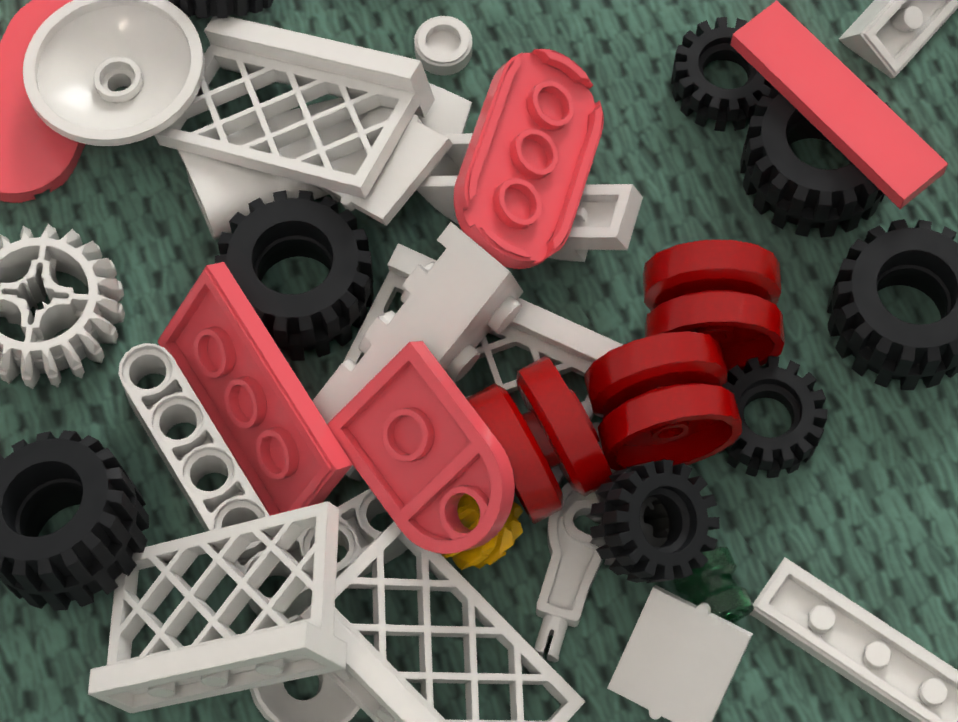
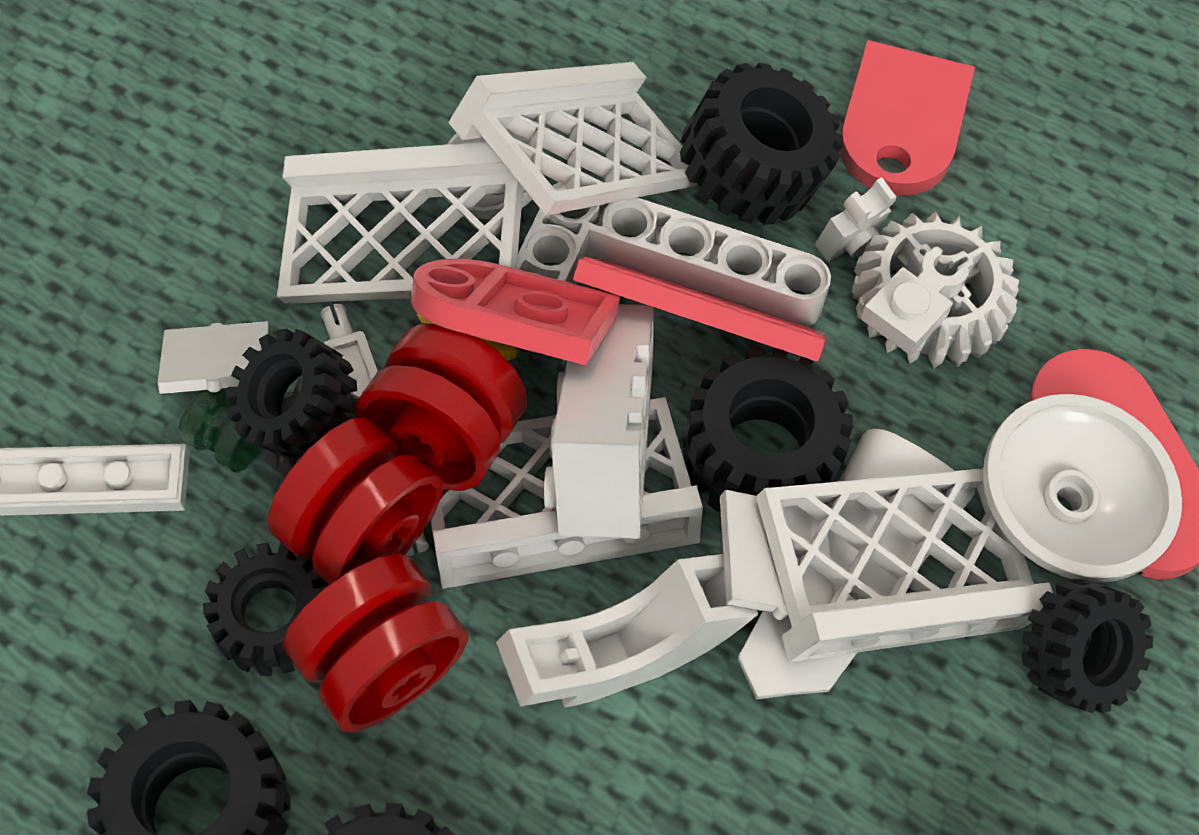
camera: 140 degrees right, 5 degrees down
(47, 397) = (858, 223): none -> white plate
(95, 276) = (914, 306): none -> white plate
(443, 45) = (845, 772): white tile -> none
(529, 158) = (649, 647): coral tile -> none

